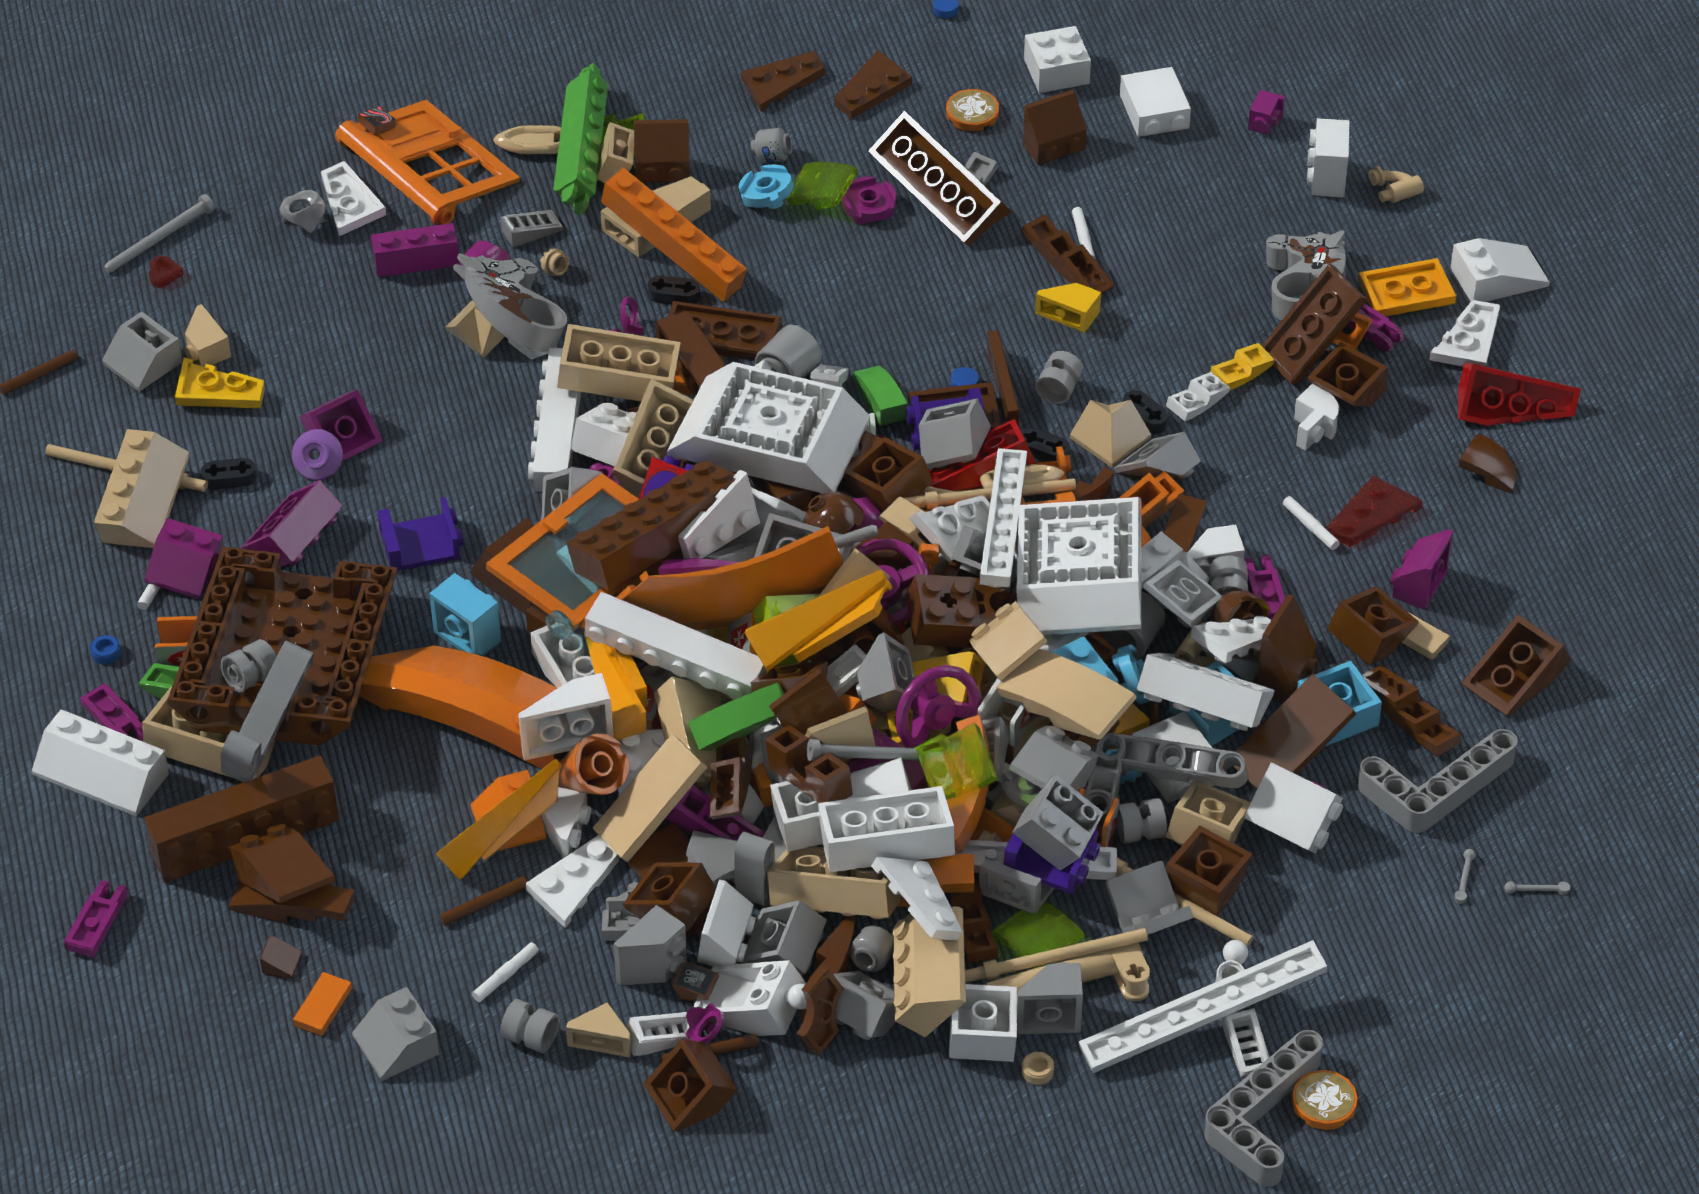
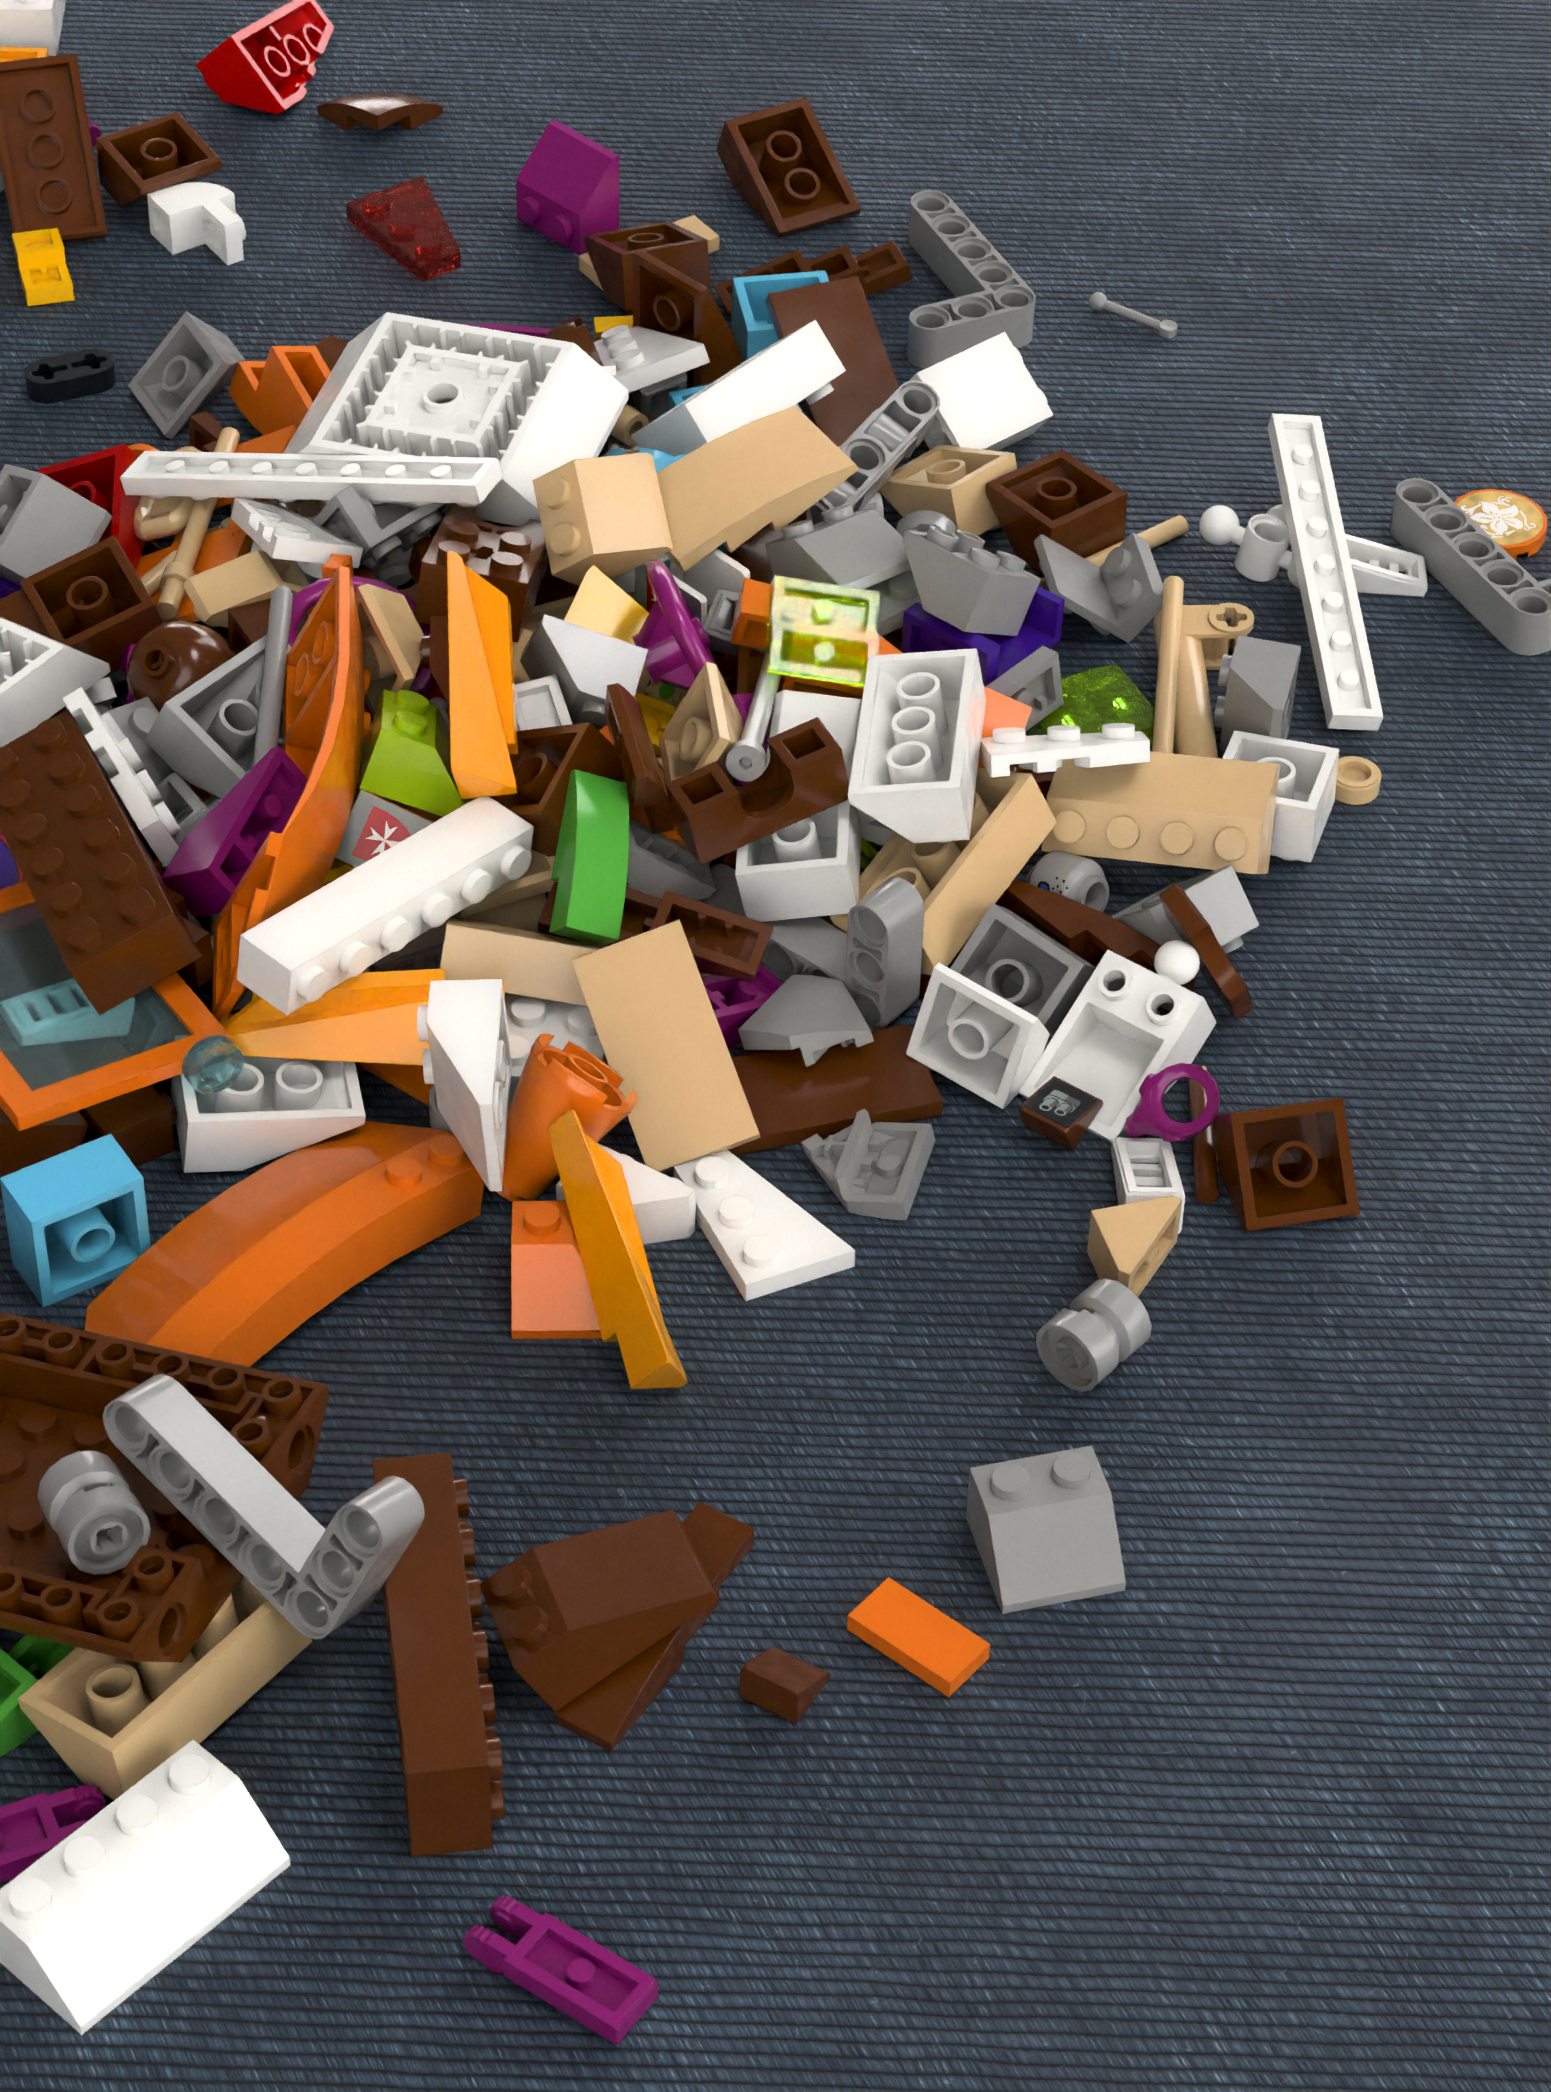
camera: 75 degrees left, 5 degrees down
(483, 901) = (754, 1358): reddish brown bar -> none
(505, 972) = (936, 1360): white piece -> none
(650, 949) = (986, 1126): light grey slope -> none
(677, 888) = (883, 1079): reddish brown slope -> none
(1110, 430) = (87, 413): tan slope -> none
(1199, 397) = (72, 318): white slope -> none
(1311, 523) = (399, 282): white piece -> none
(1470, 337) = (131, 63): white wing -> none
(1562, 888) = (1184, 245): light grey hinge -> none

